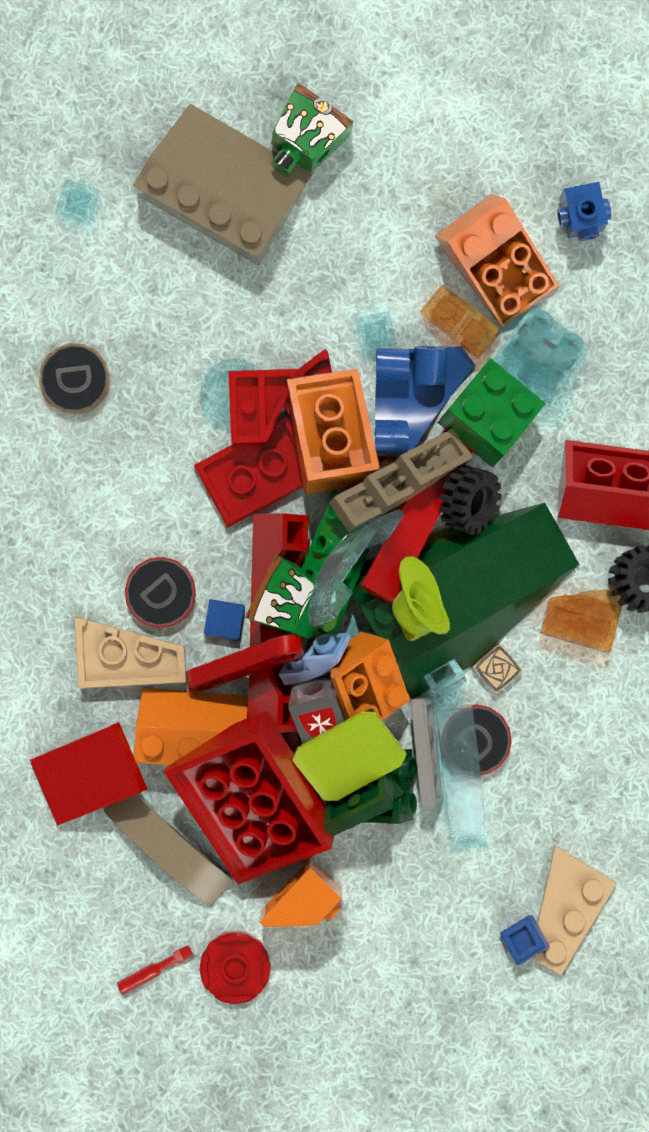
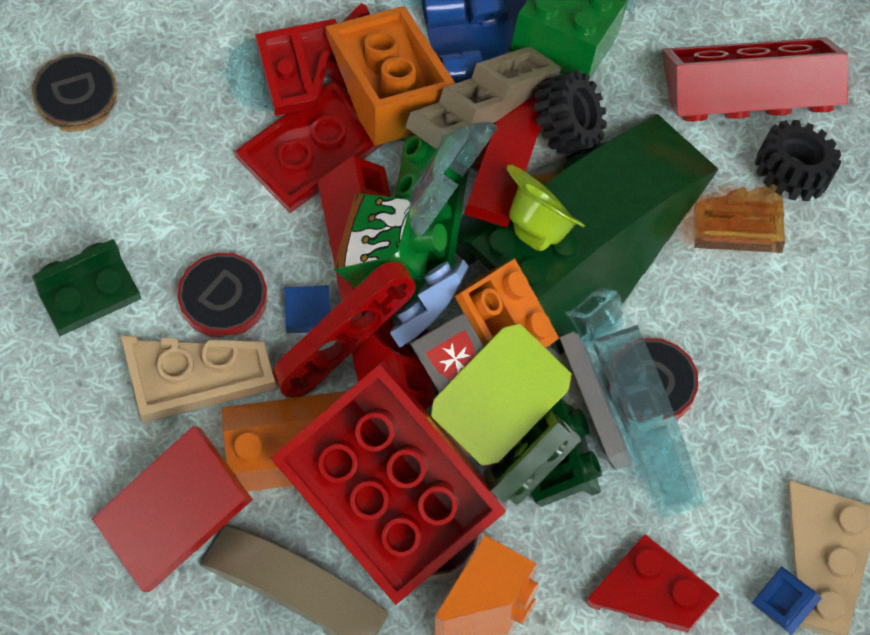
camera: 10 degrees left, 25 degrees down
(56, 565) = (85, 287): none -> dark green bracket
(431, 905) = (654, 588): none -> red wing
(497, 668) = (655, 297): tile -> none

